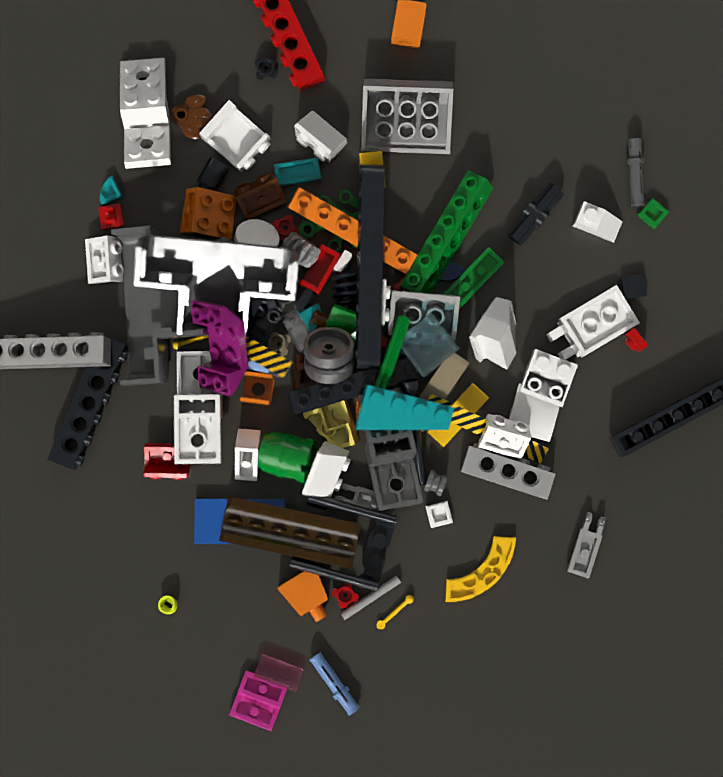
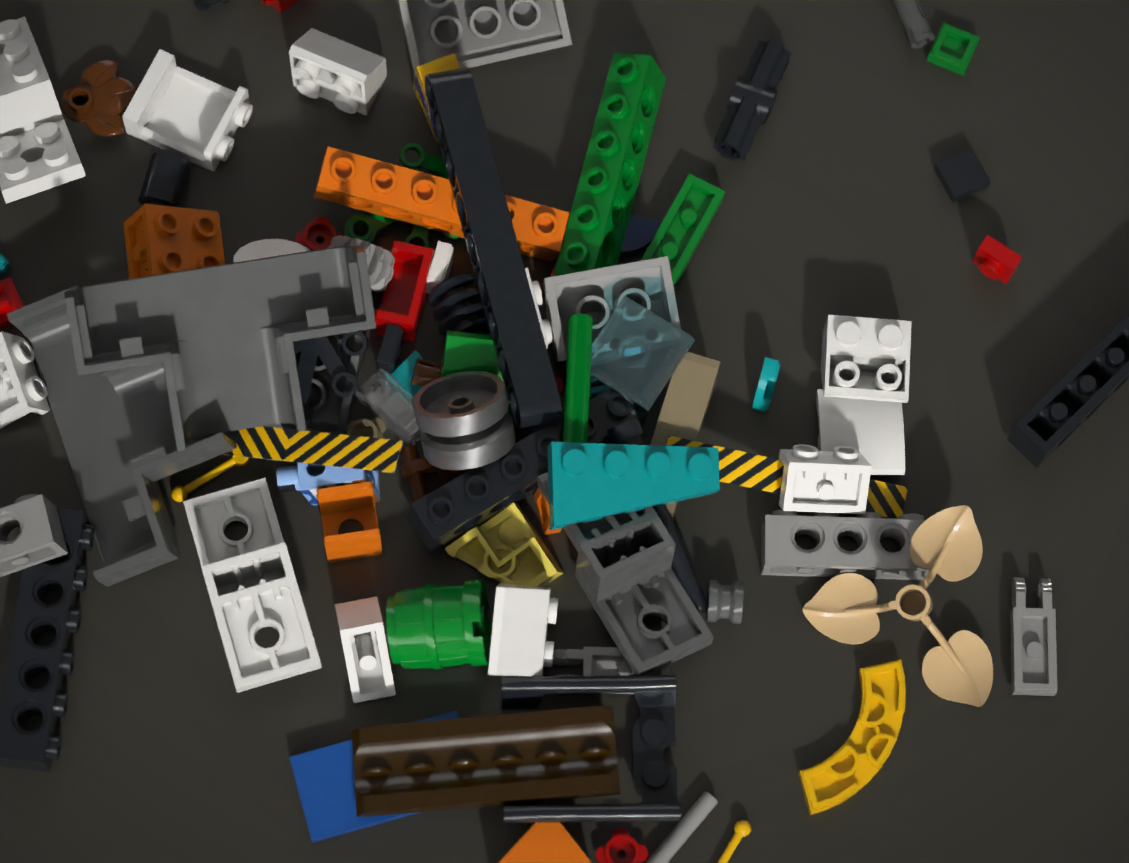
camera: 20 degrees left, 15 degrees down
(161, 462) = (211, 703): red bracket -> none
(226, 348) = (270, 449): magenta slope -> none
(259, 195) = (259, 197): reddish brown bracket -> none
(297, 172) = (306, 145): teal tile -> none
(439, 514) = (748, 659): white tile -> none
(470, 400) = (712, 511): yellow tile -> none
(492, 374) = (766, 384): none -> teal tile
(496, 334) = (749, 308): white helmet -> none
(556, 490) = (947, 546): none -> tan plant
(594, 323) = (915, 253): white tile -> none
(597, 221) = (862, 84): white slope -> none

